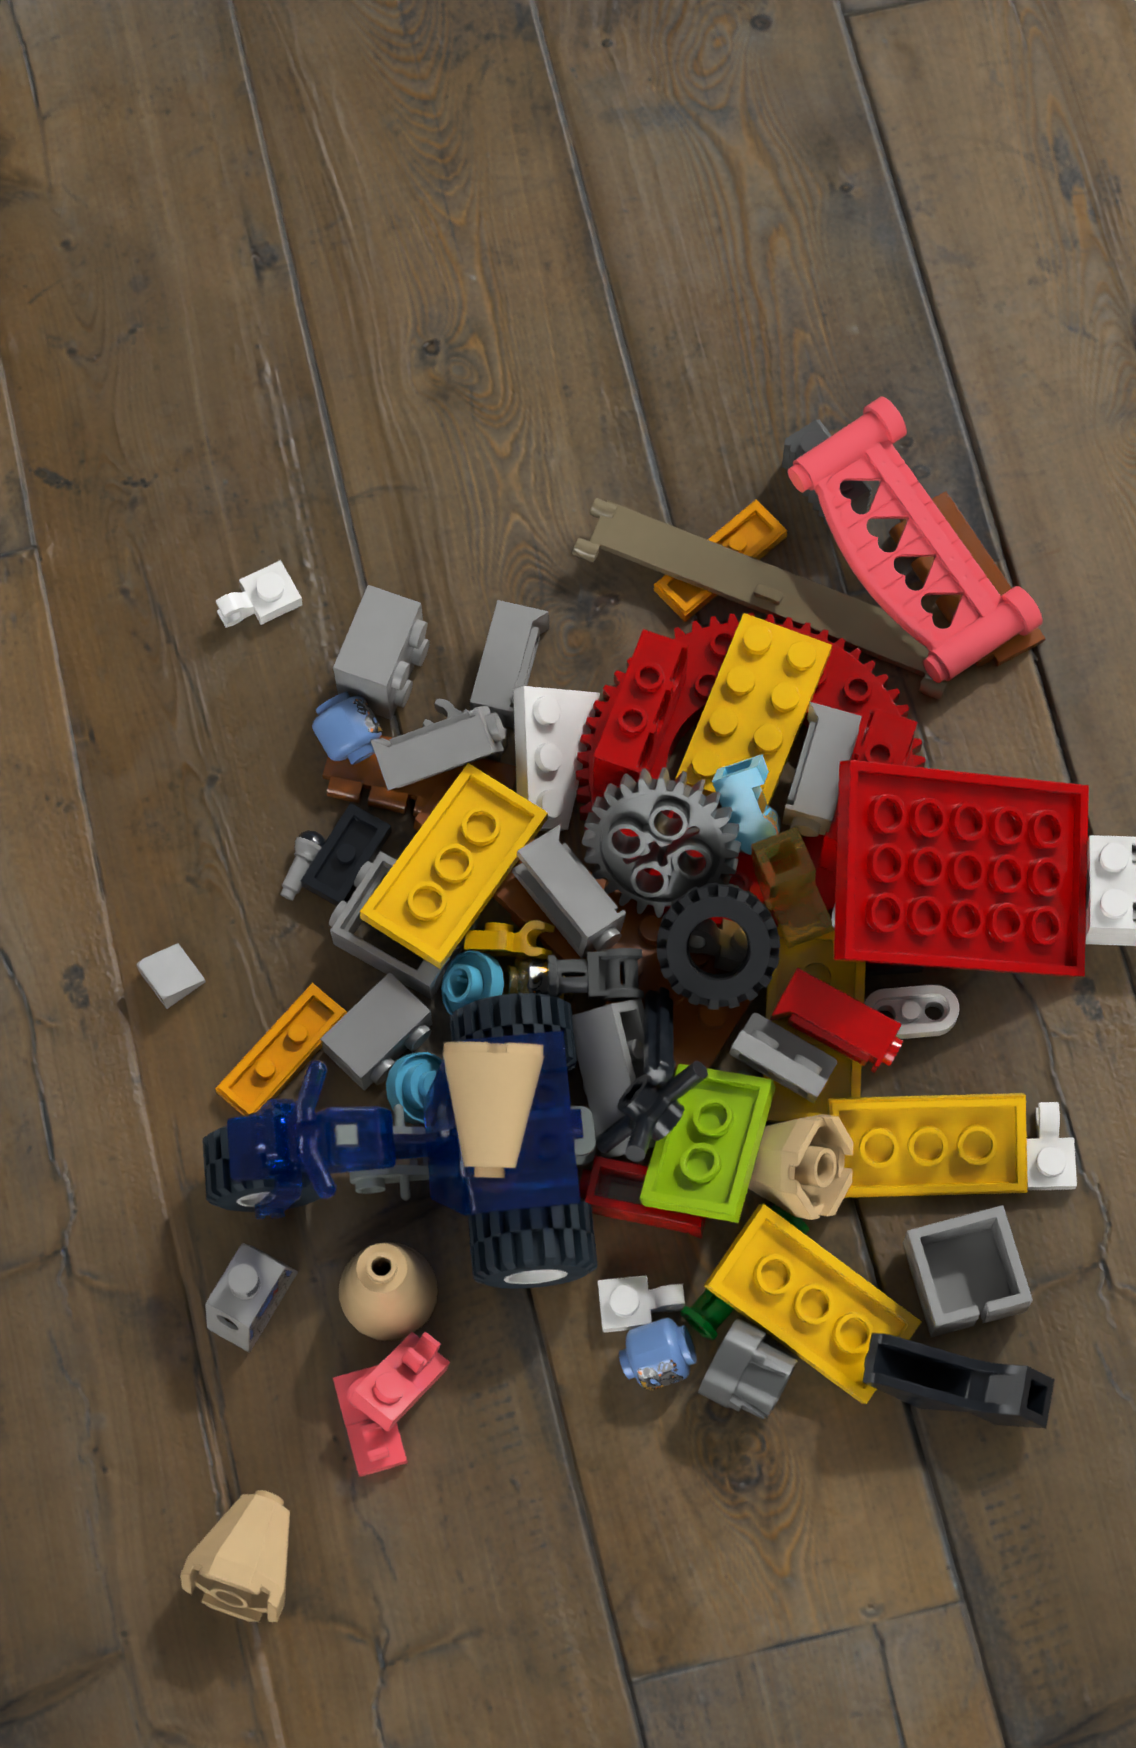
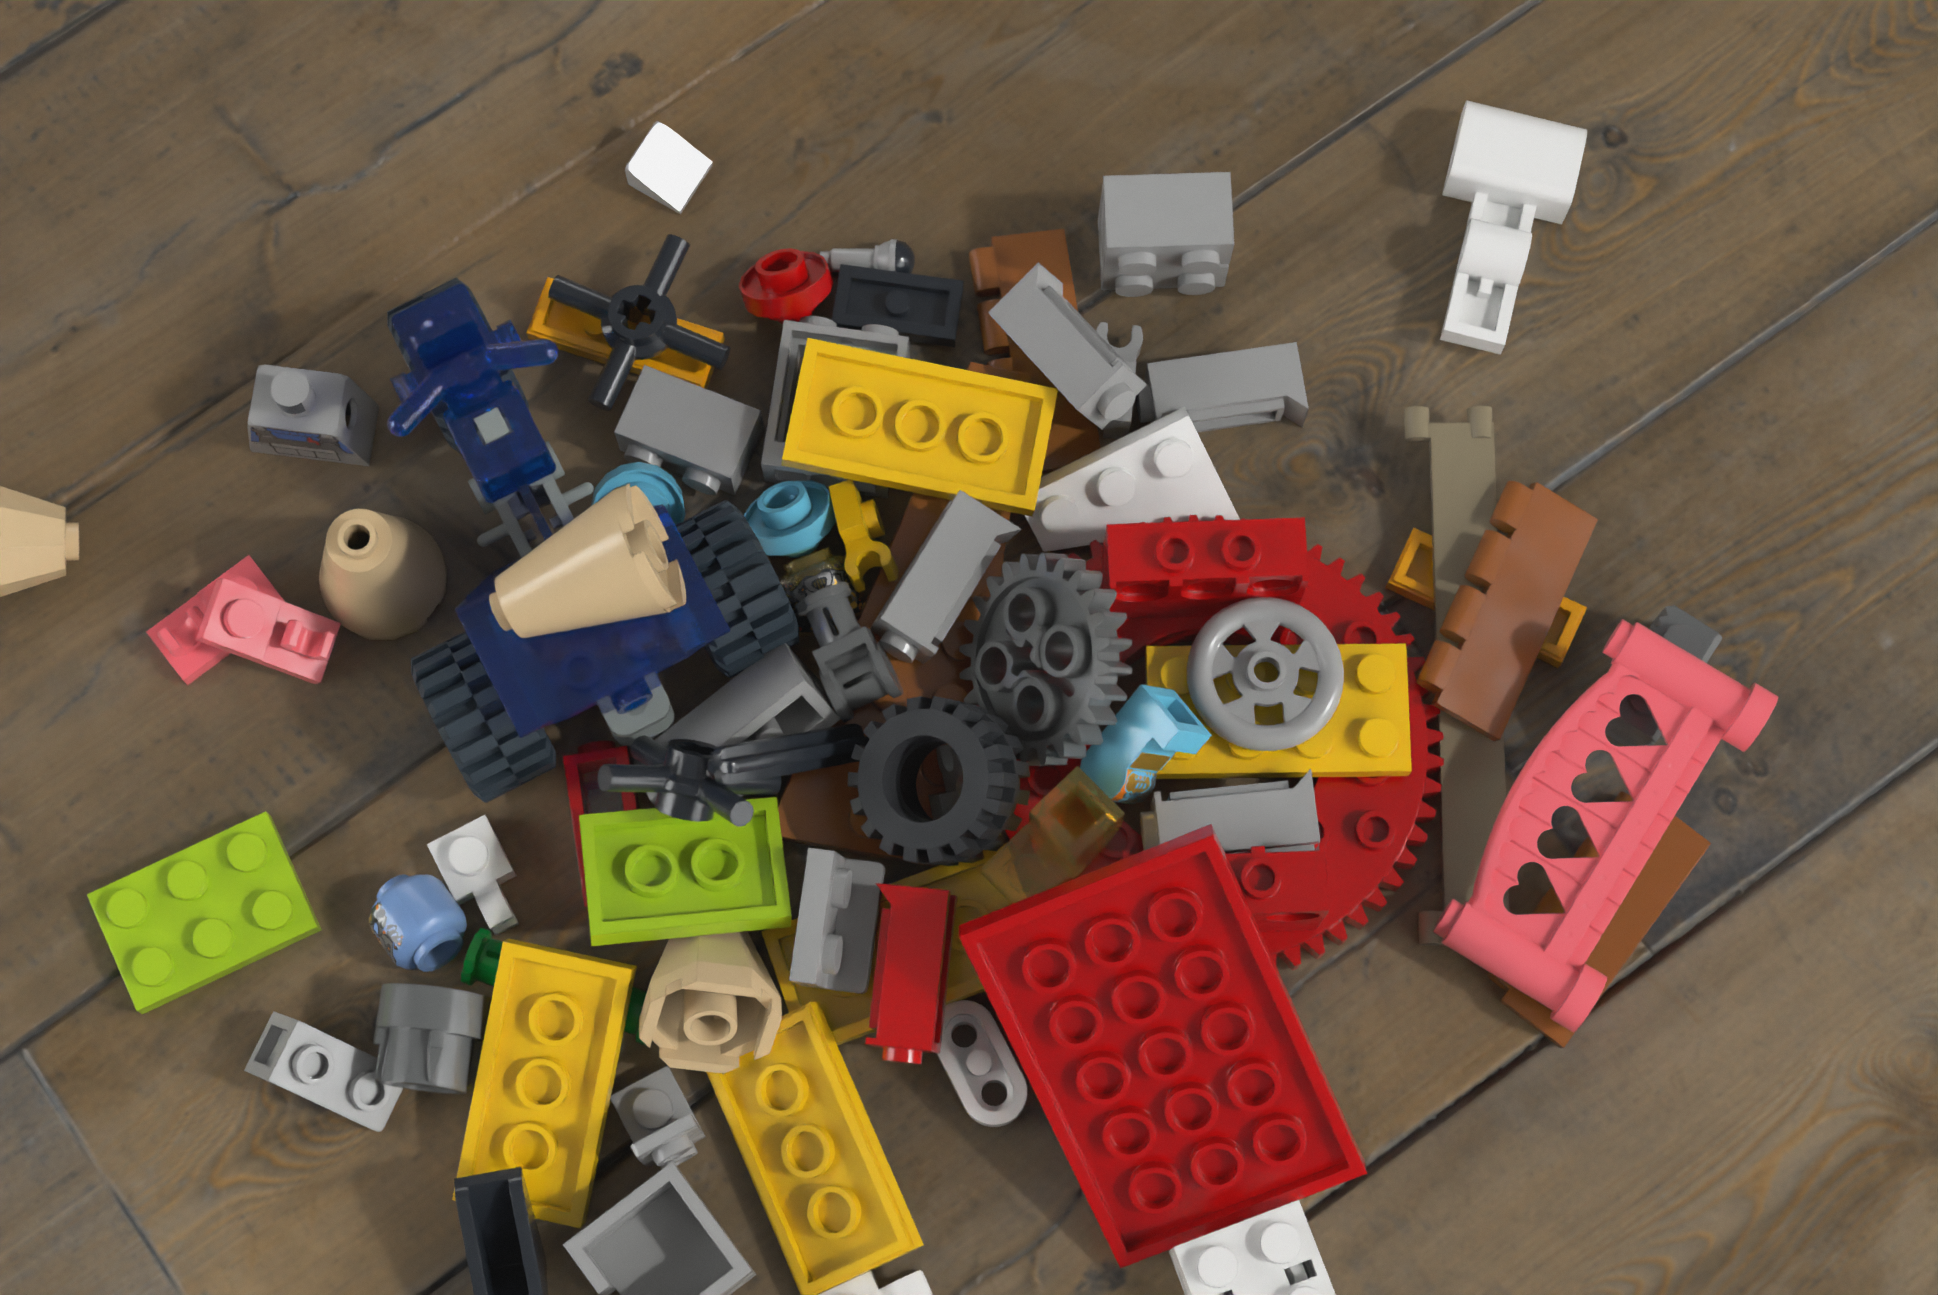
camera: 65 degrees right, 5 degrees up
(263, 593) = (1193, 77): white plate -> none
(285, 1014) = (646, 339): none -> black bar
(299, 923) = (786, 285): none -> red plate
(346, 728) = (1056, 233): medium blue head -> none
(435, 419) = (1511, 173): none -> white plate
(585, 1508) = (203, 912): none -> lime plate
(706, 736) = (1236, 719): none -> light grey plate
(735, 1463) = (322, 1071): none -> light grey bracket
(746, 547) = (1508, 620): none -> dark orange windscreen
(869, 1241) = (658, 1120): none -> light grey bracket

